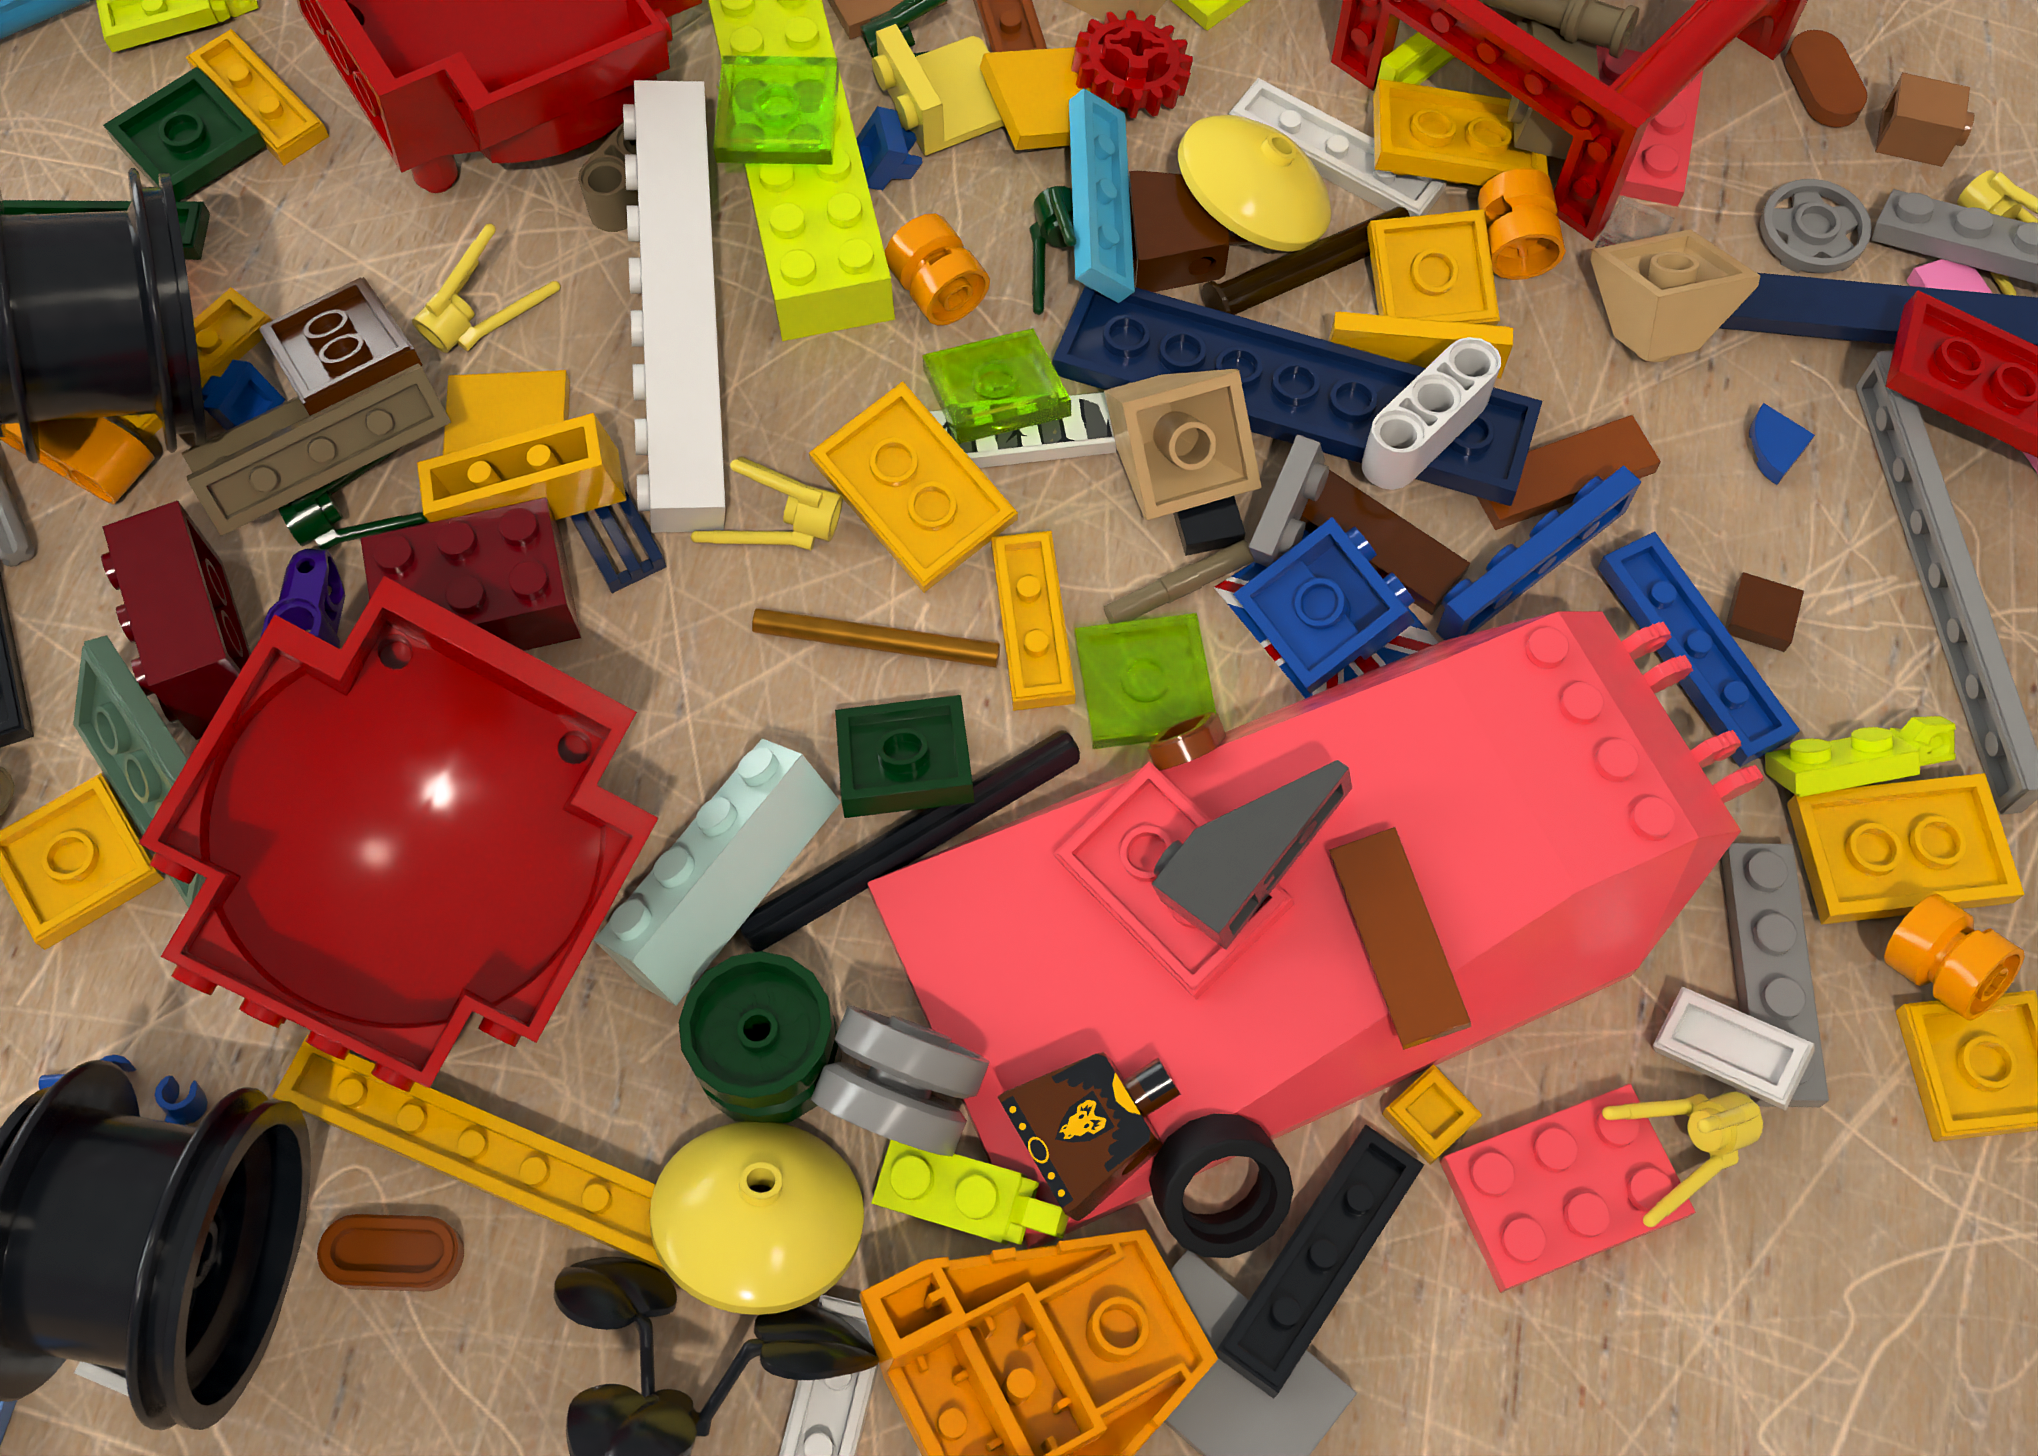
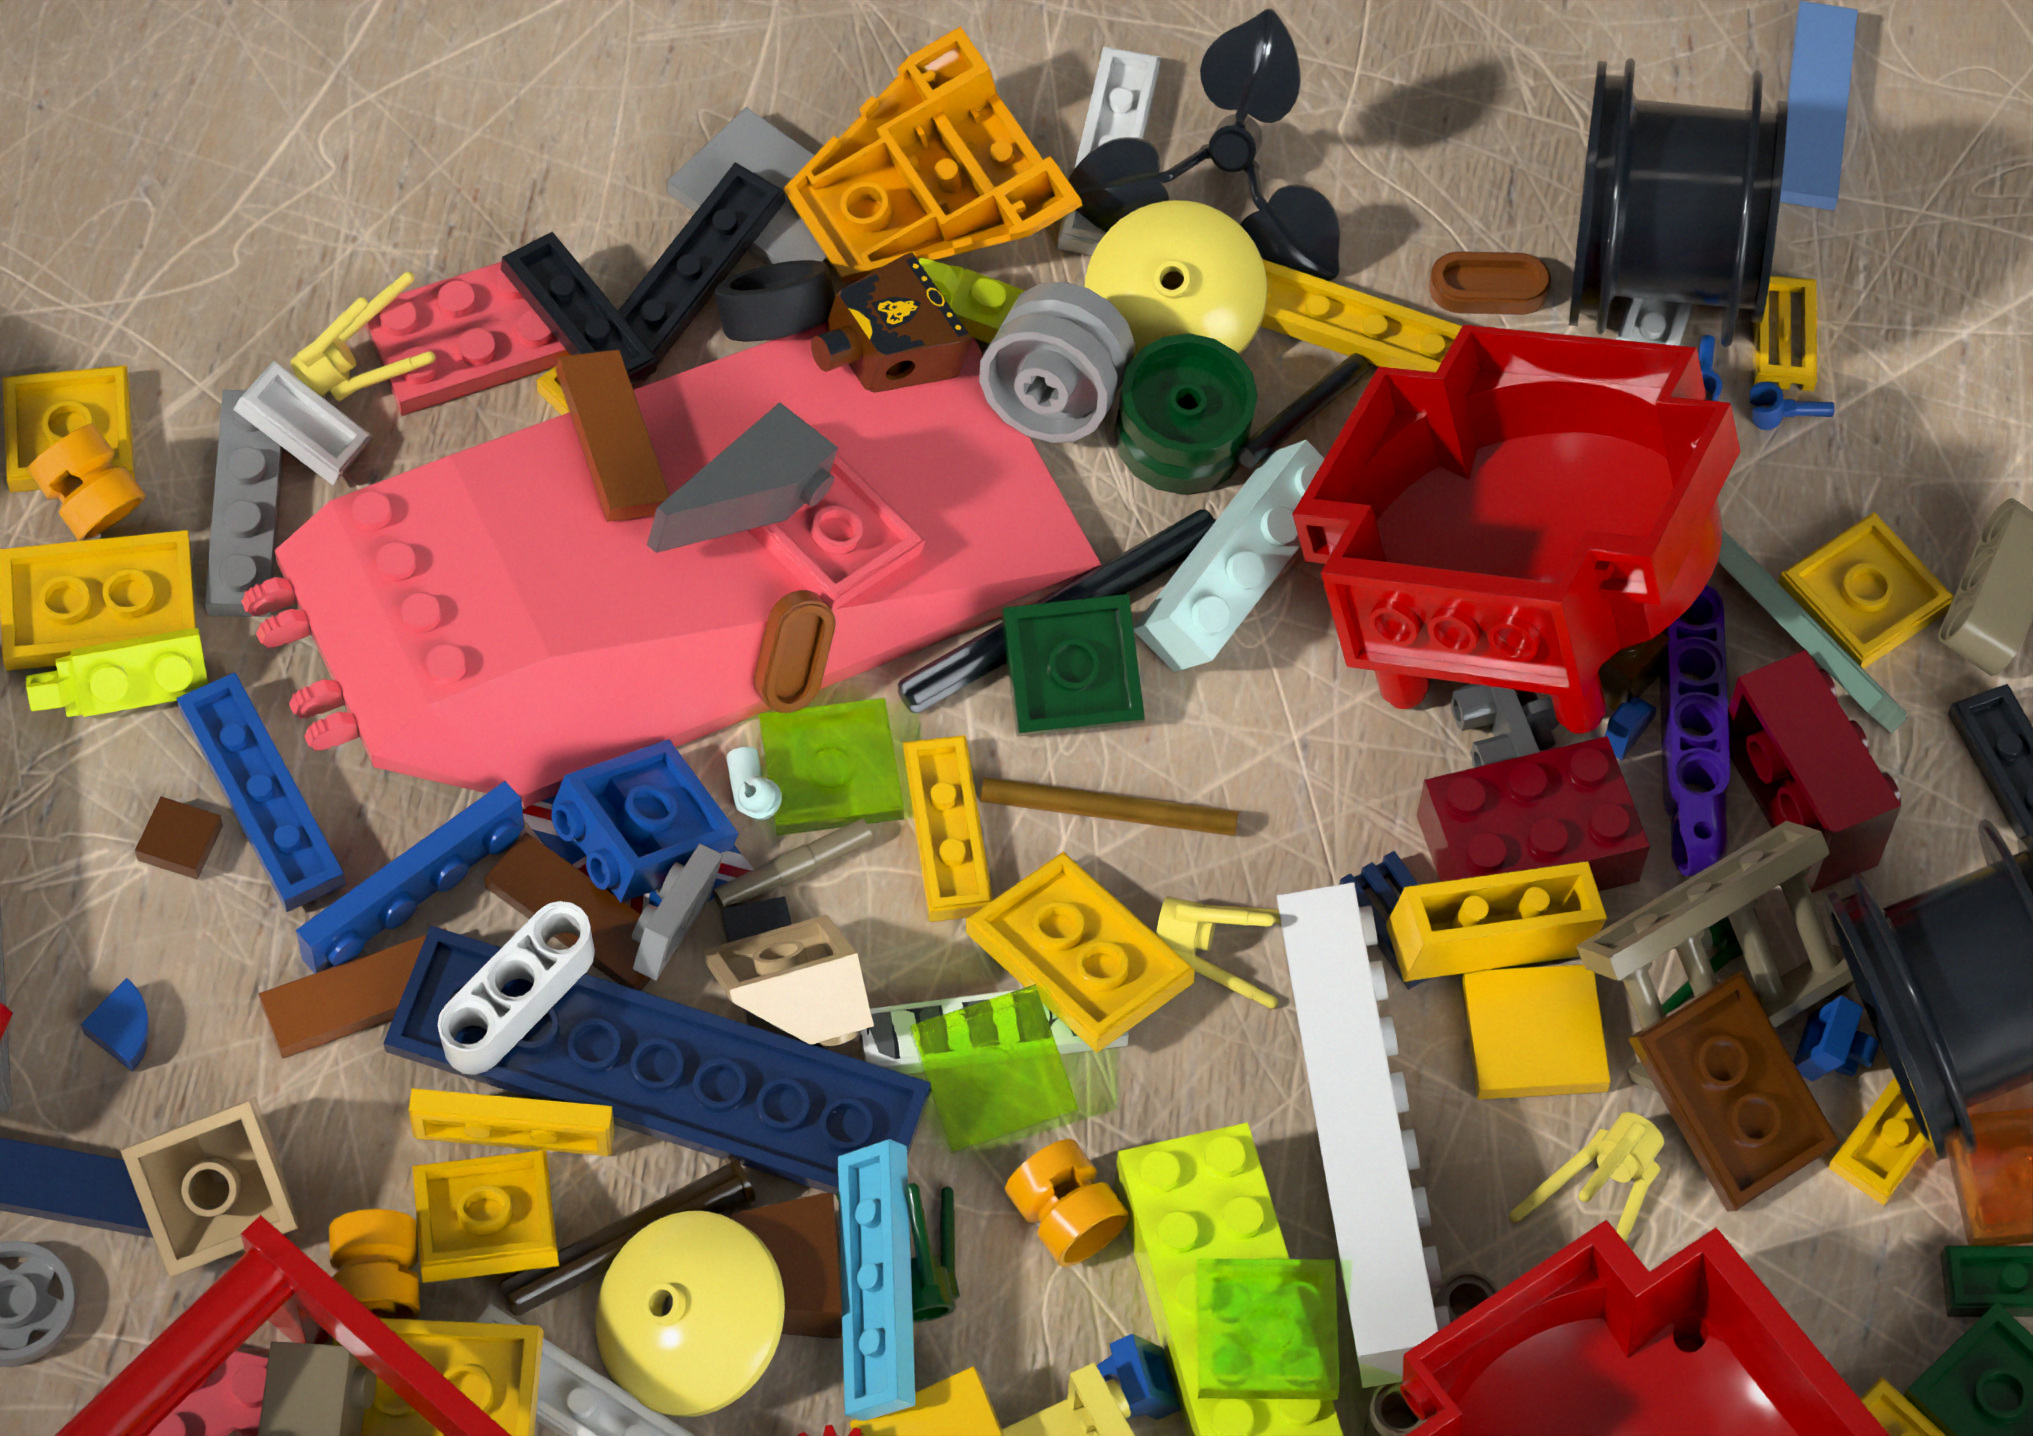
camera: 175 degrees right, 5 degrees down
(622, 1072) = (1302, 410): none -> black bar
(1217, 635) = (752, 792): none -> light aqua arm
(1447, 1181) = (574, 304): none -> black tile

